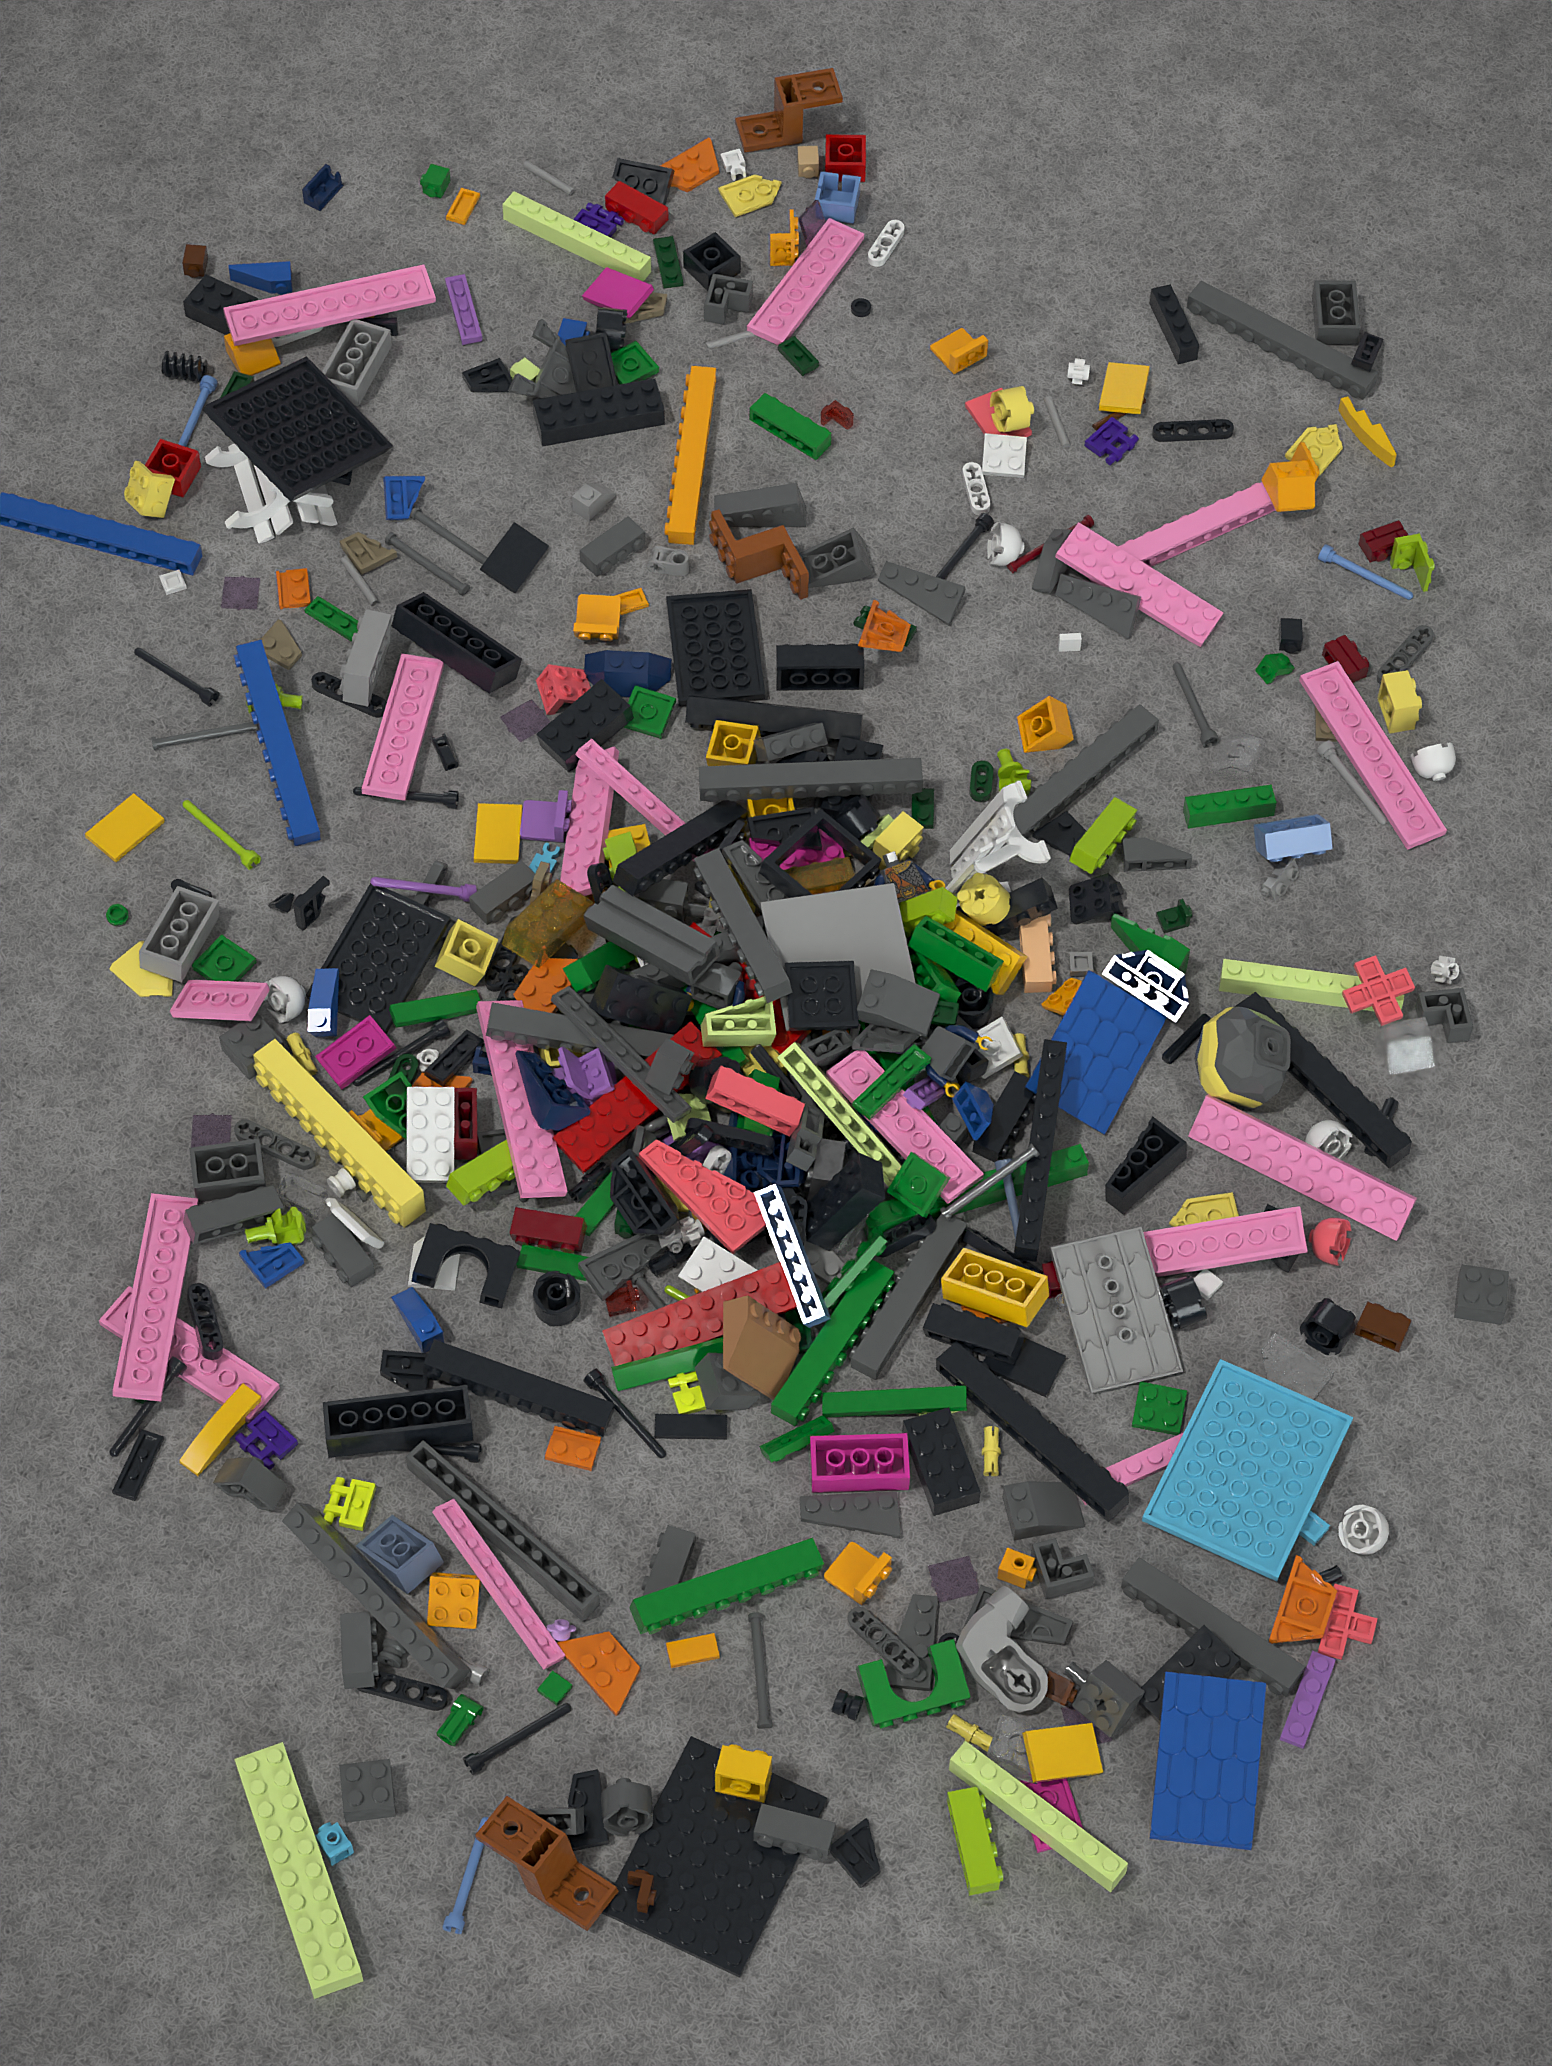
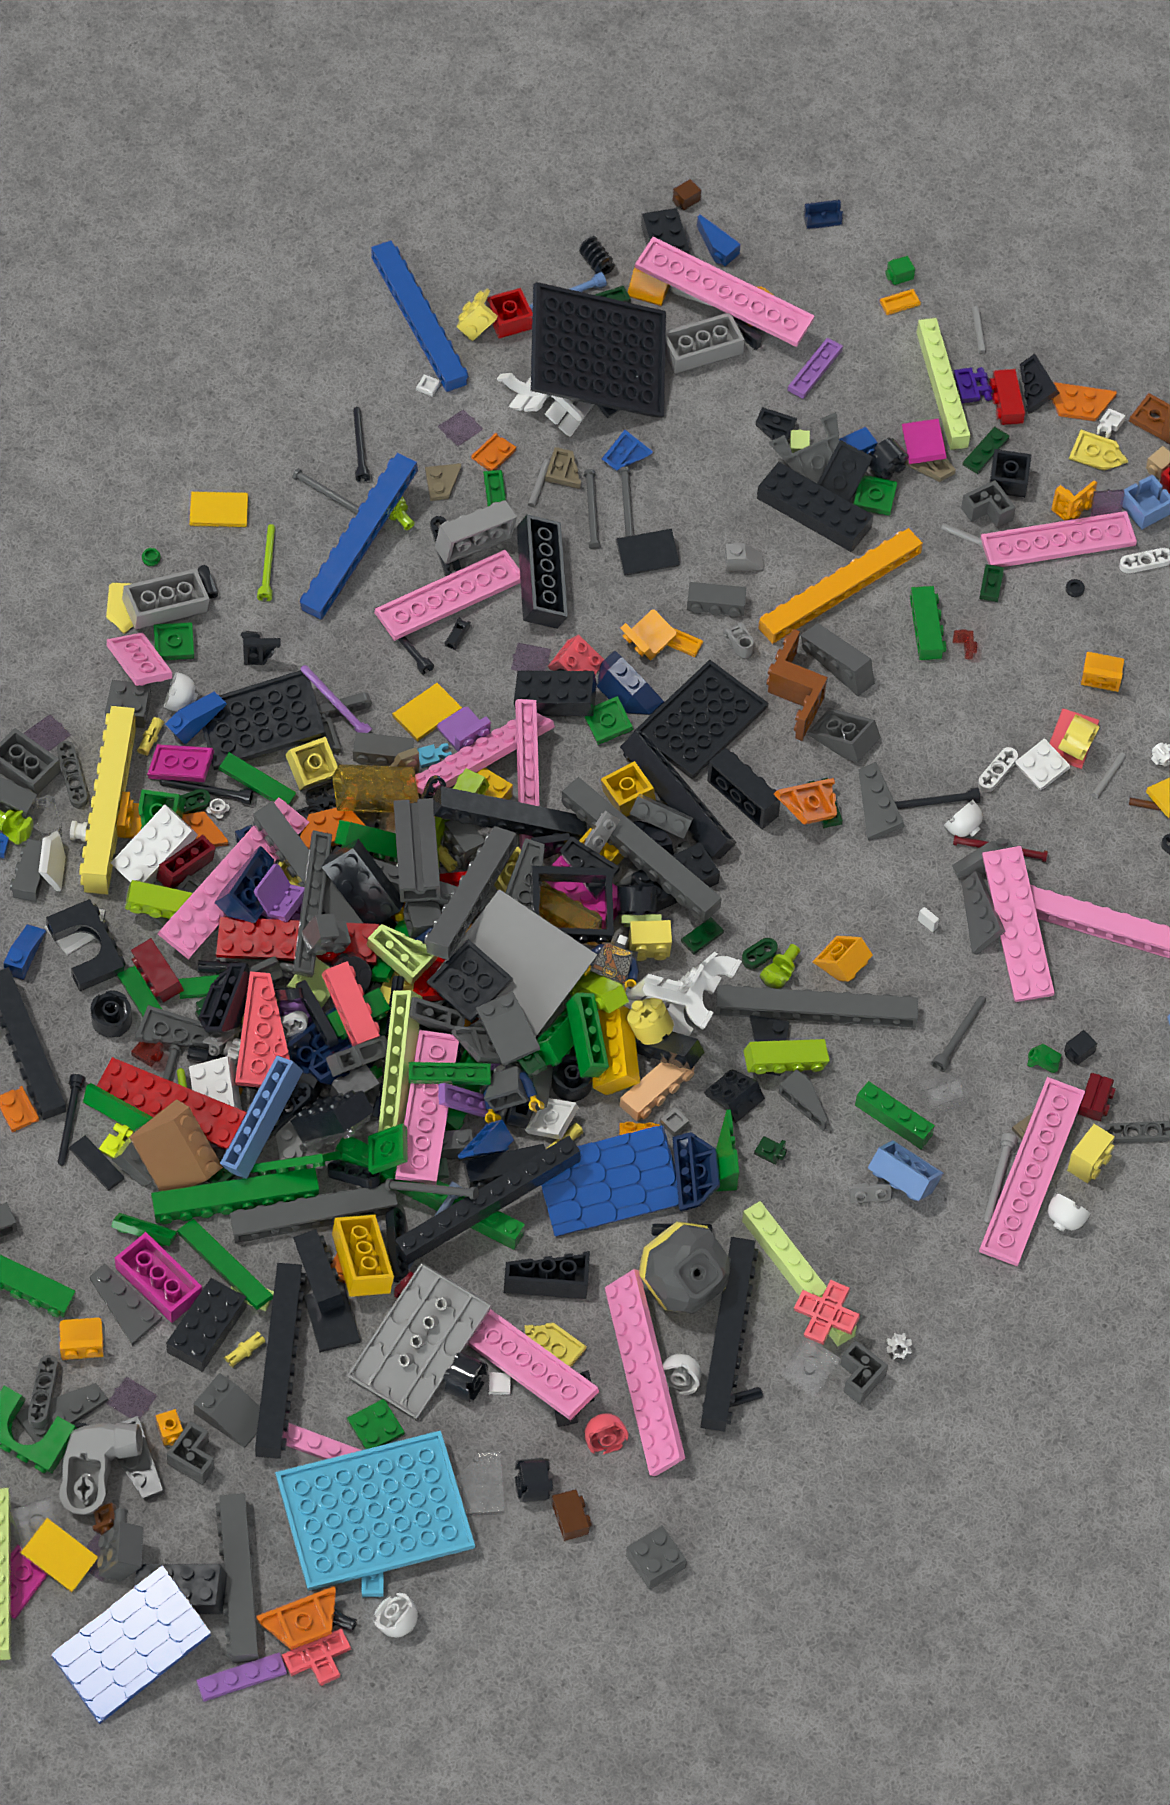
camera: 45 degrees right, 0 degrees up
(454, 1058) = (227, 819): black tile -> none
(769, 780) = (602, 832): none -> light grey hinge
(969, 1732) = (27, 1487): light yellow pin -> none
(1107, 436) = (1127, 813): dark purple plate -> none

